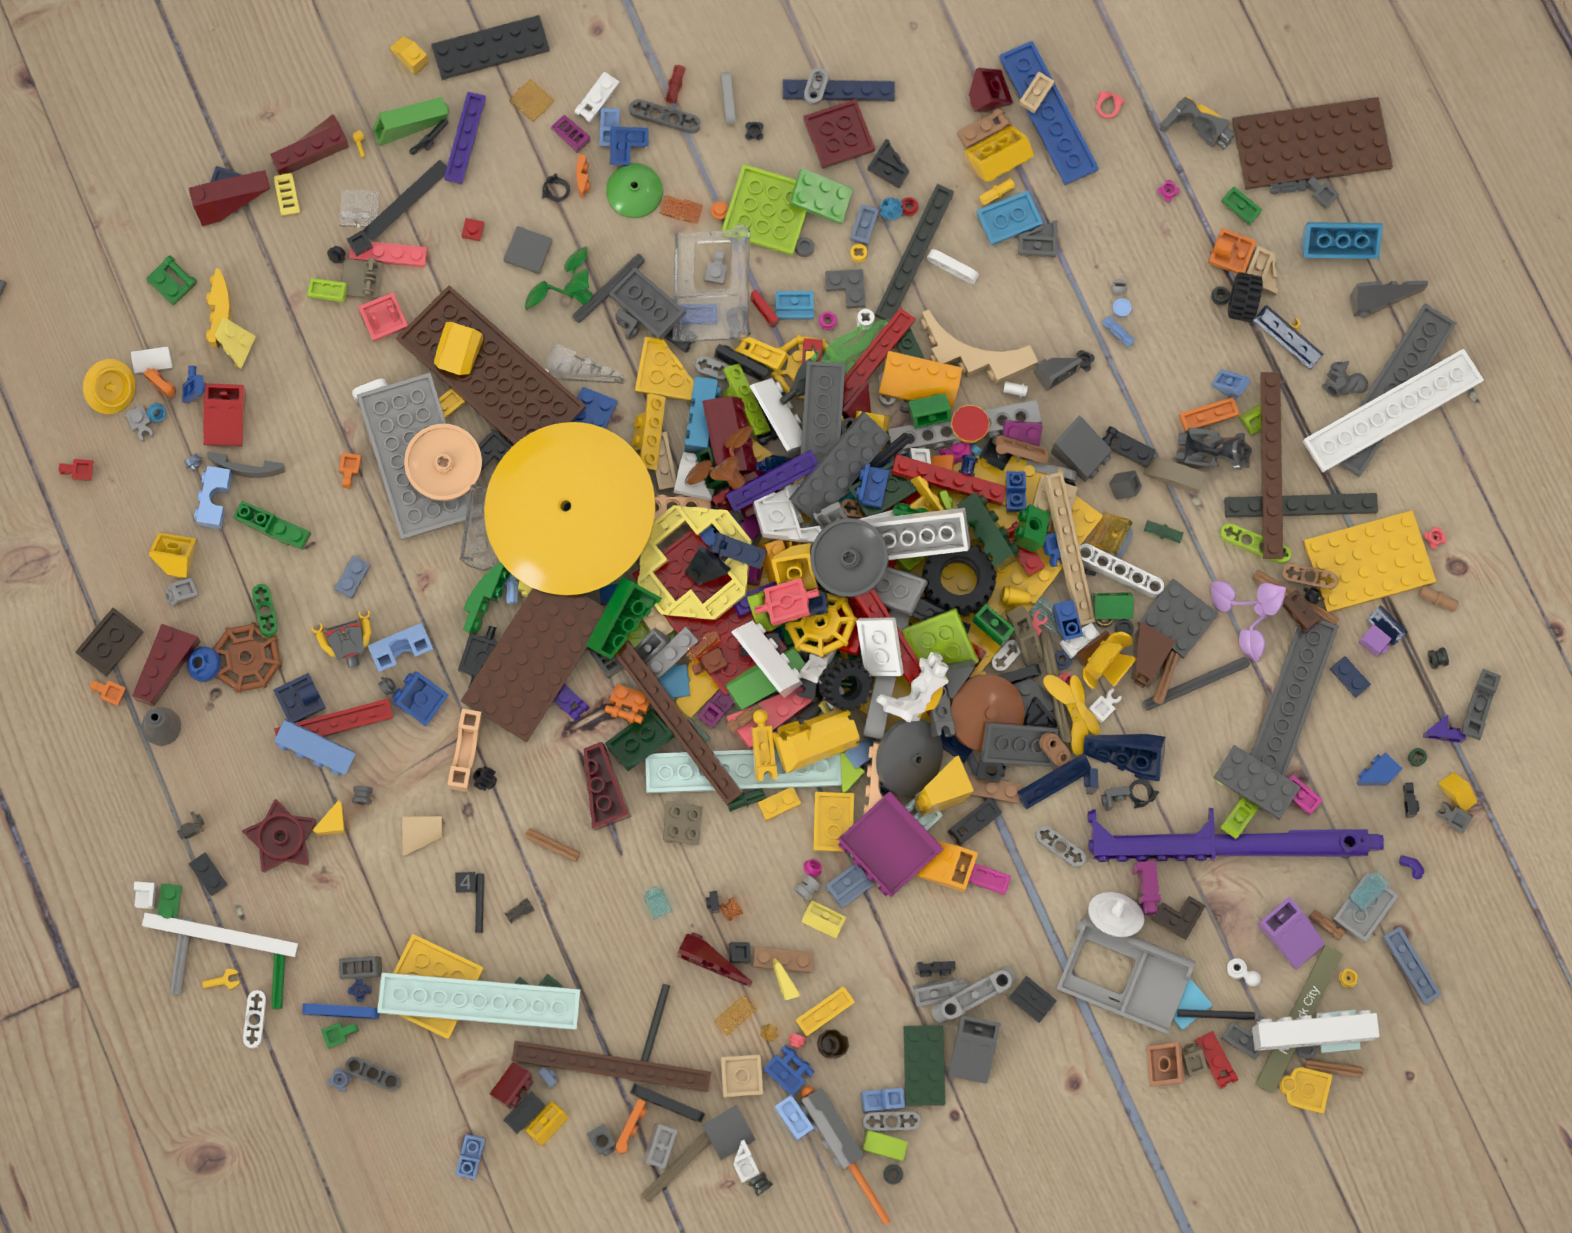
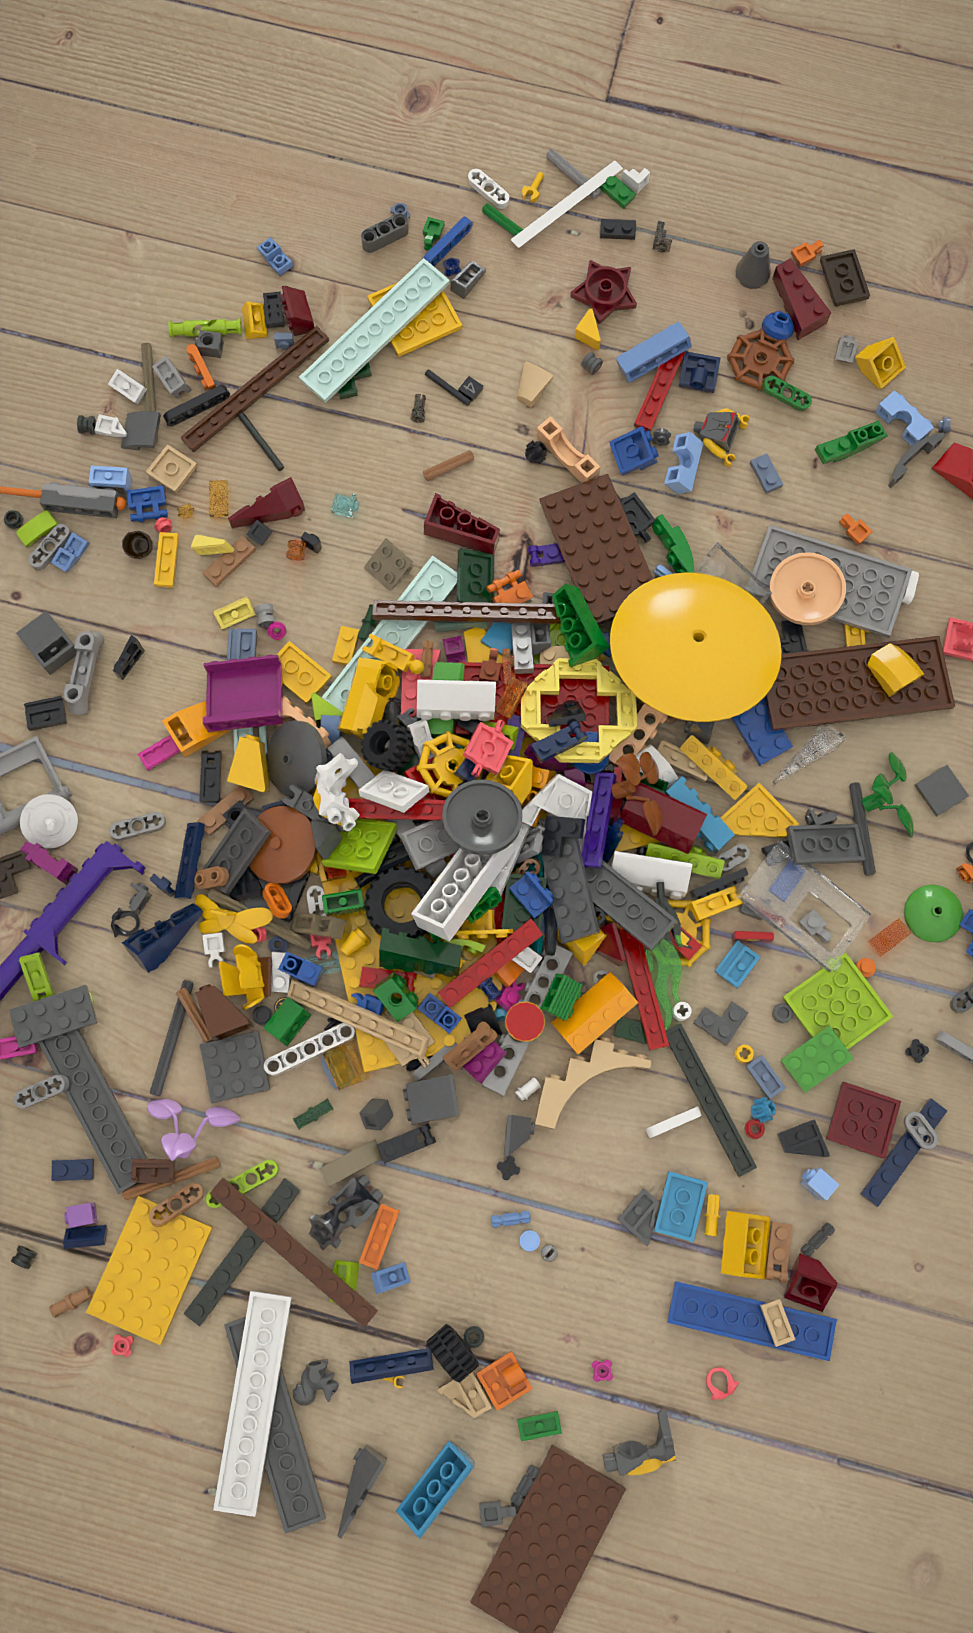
camera: 135 degrees right, 0 degrees up
(592, 1161) = (218, 325): none -> lime piece
(697, 1178) = (127, 386): none -> white plate
(727, 619) = (511, 698): none -> clear orange plate
(808, 501) = (557, 830): none -> black plate
(827, 315) = (704, 975): dark pink plate -> none
(914, 130) = (818, 1183): none -> light blue brick
(924, 1065) = (68, 600): dark green plate -> none
(937, 991) = (109, 650): light grey hinge -> none
(954, 107) = (818, 1239): none -> dark grey axle
(1031, 681) = (278, 903): none -> orange plate
(1313, 595) = (160, 1194): black plate -> none
(1324, 745) = (33, 1090): none -> light grey beam

